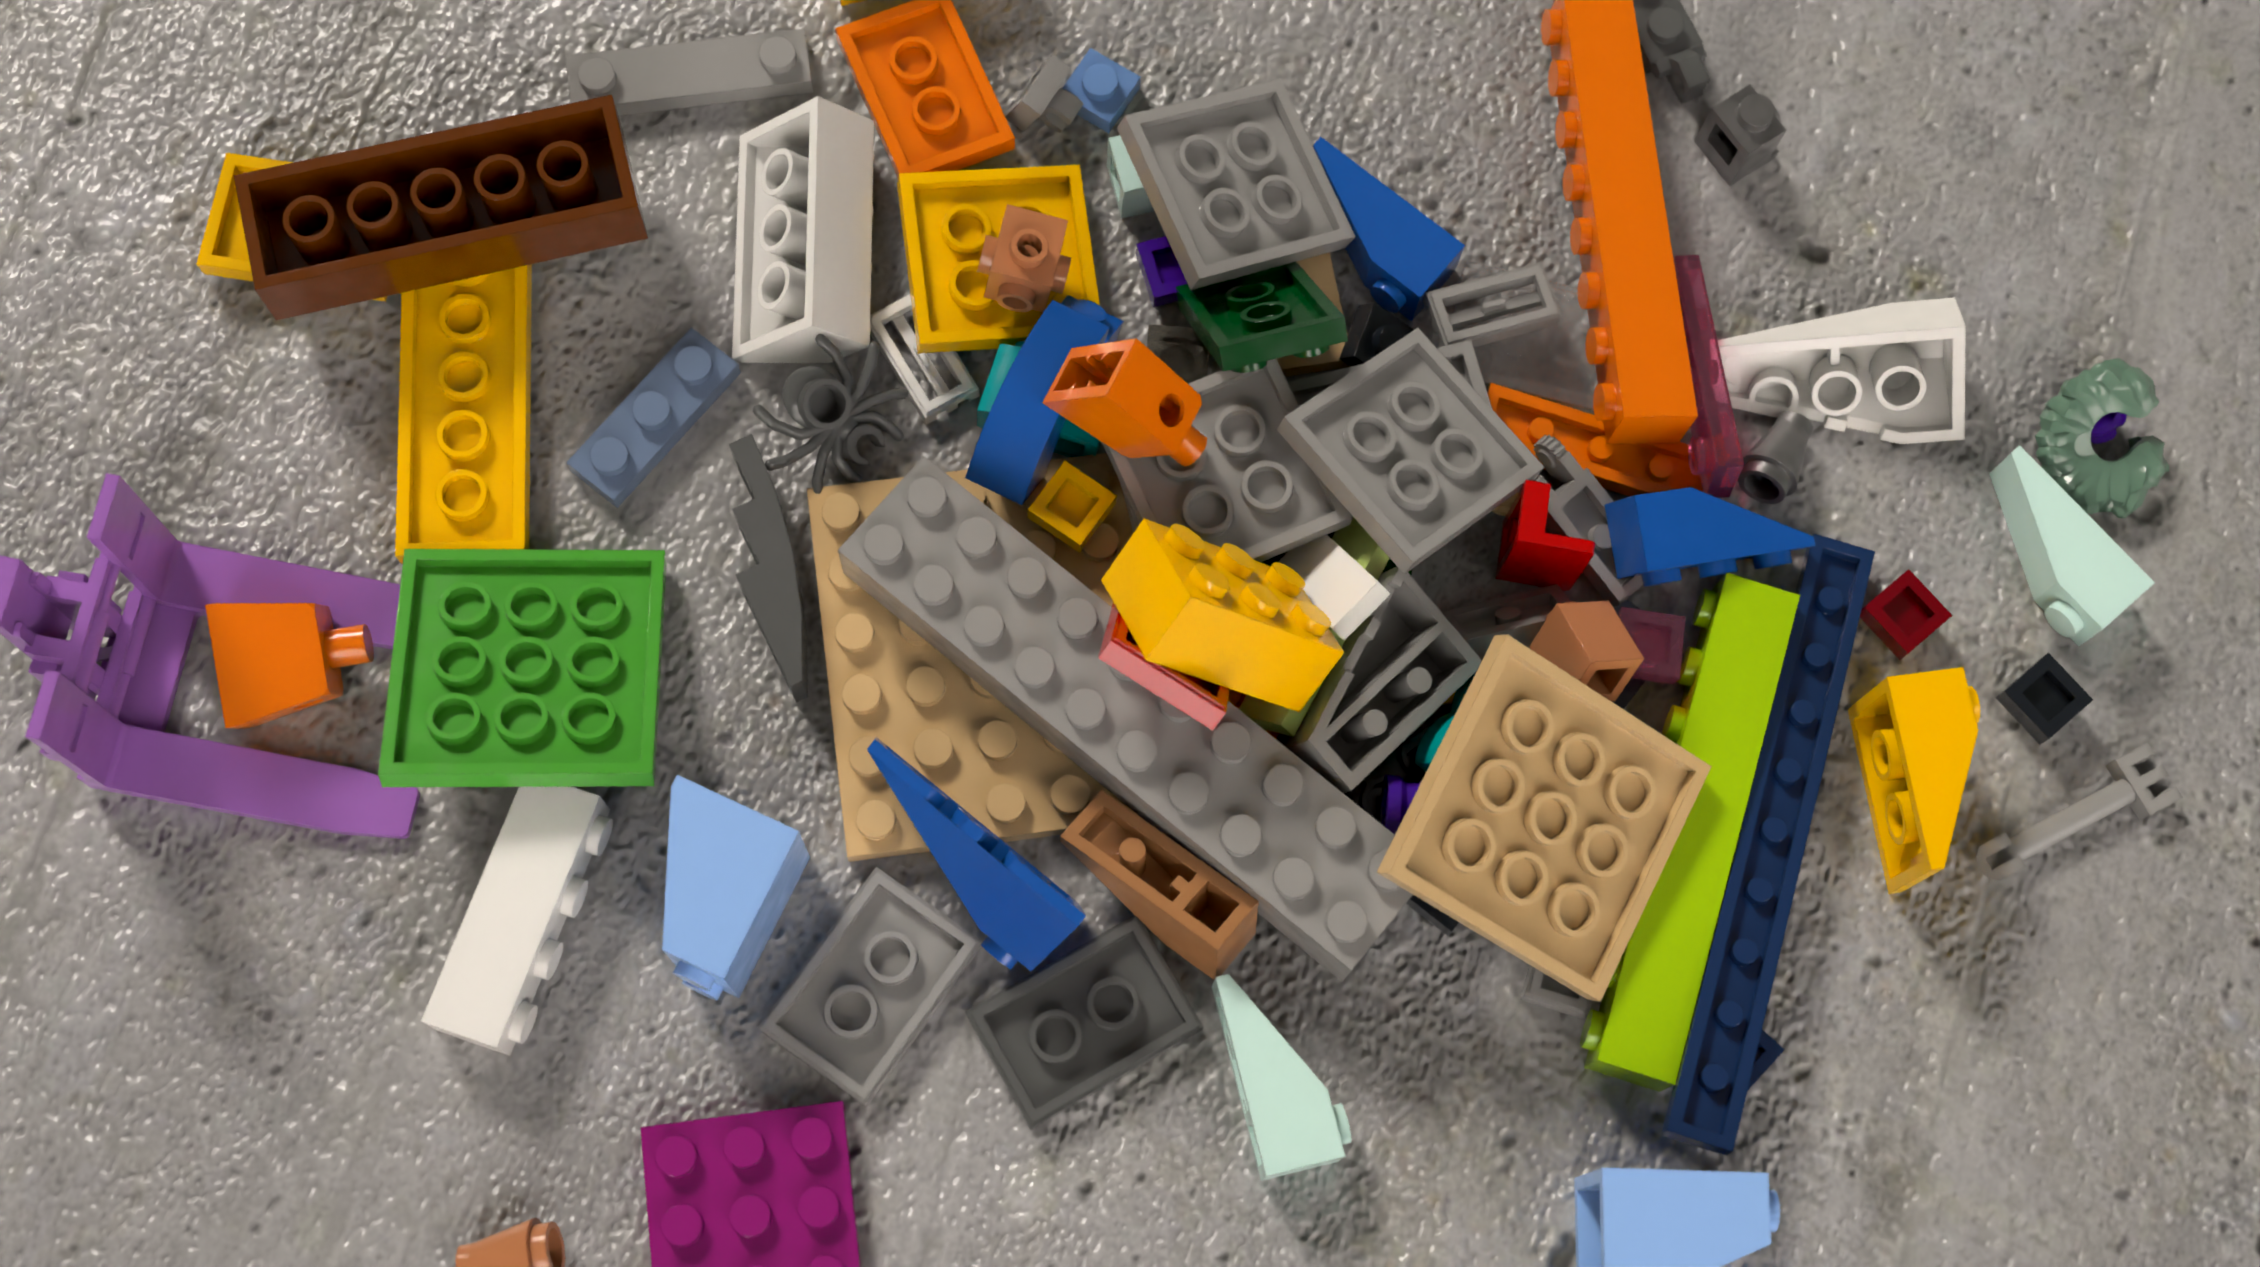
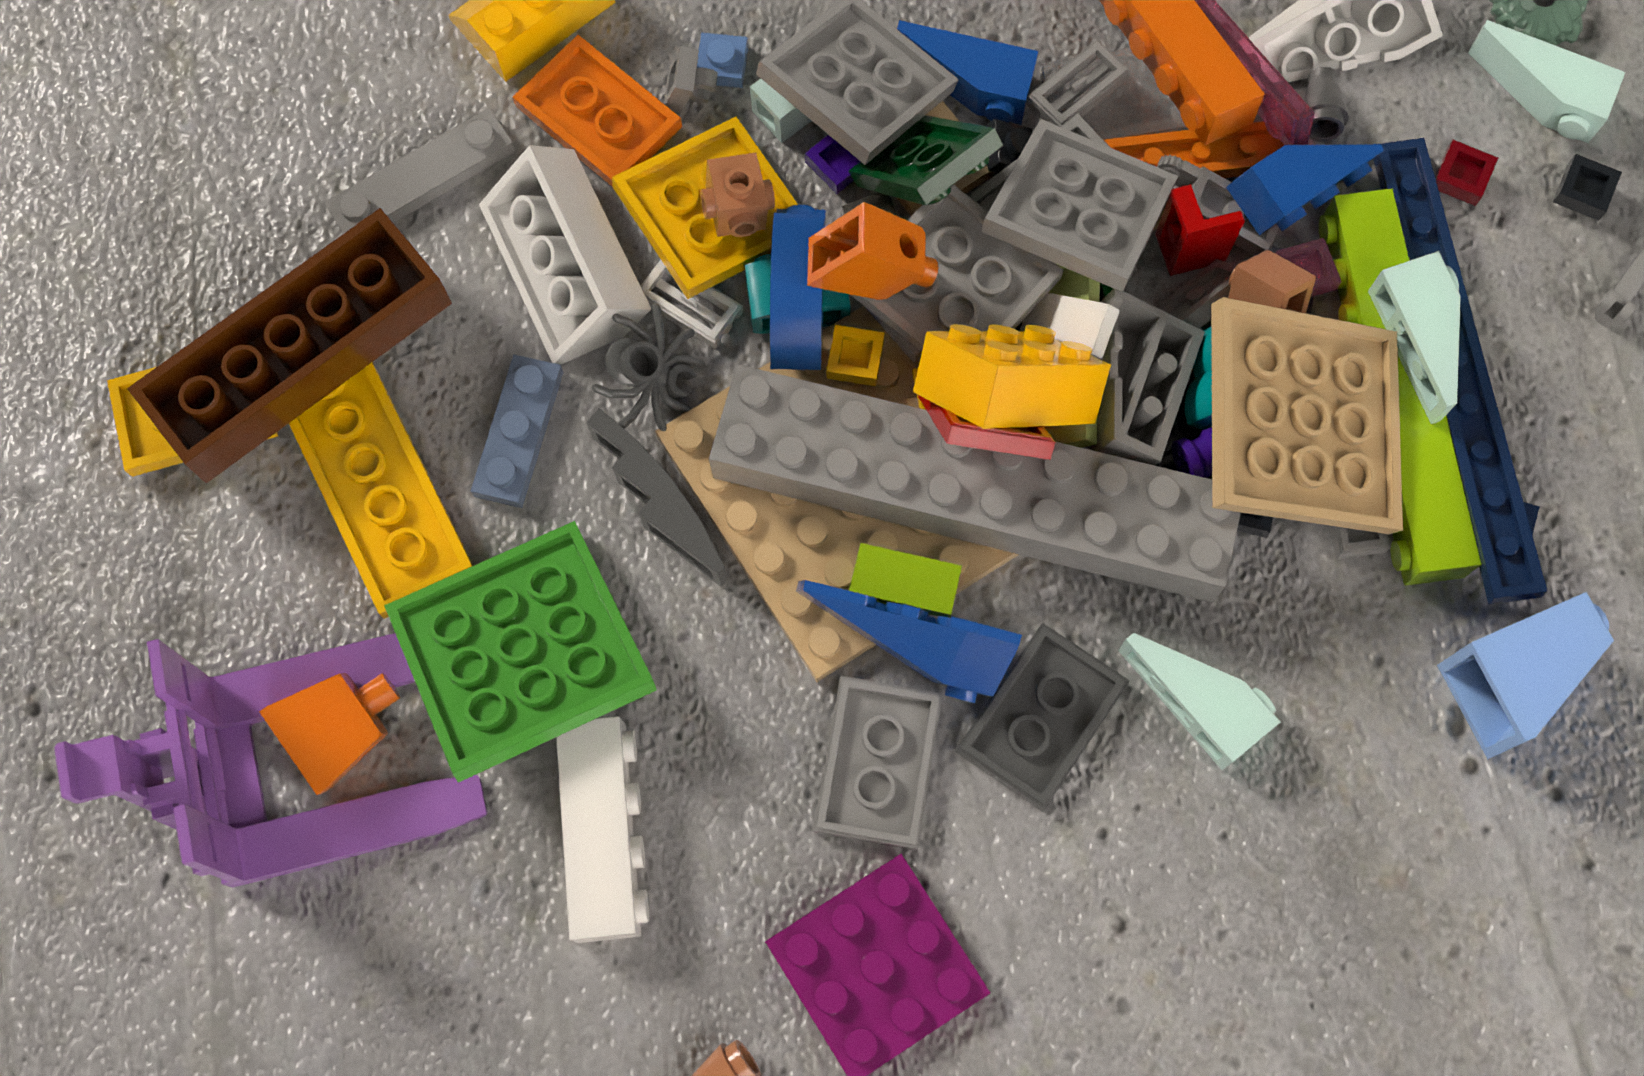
camera: 15 degrees left, 0 degrees up
(724, 887) = (744, 736): light blue slope -> none
(999, 792) = (906, 579): none -> lime tile
(1164, 885) = (1054, 592): medium nougat slope -> none
(1753, 752) = (1424, 308): none -> light aqua slope
(1914, 760) = (1532, 273): yellow slope -> none

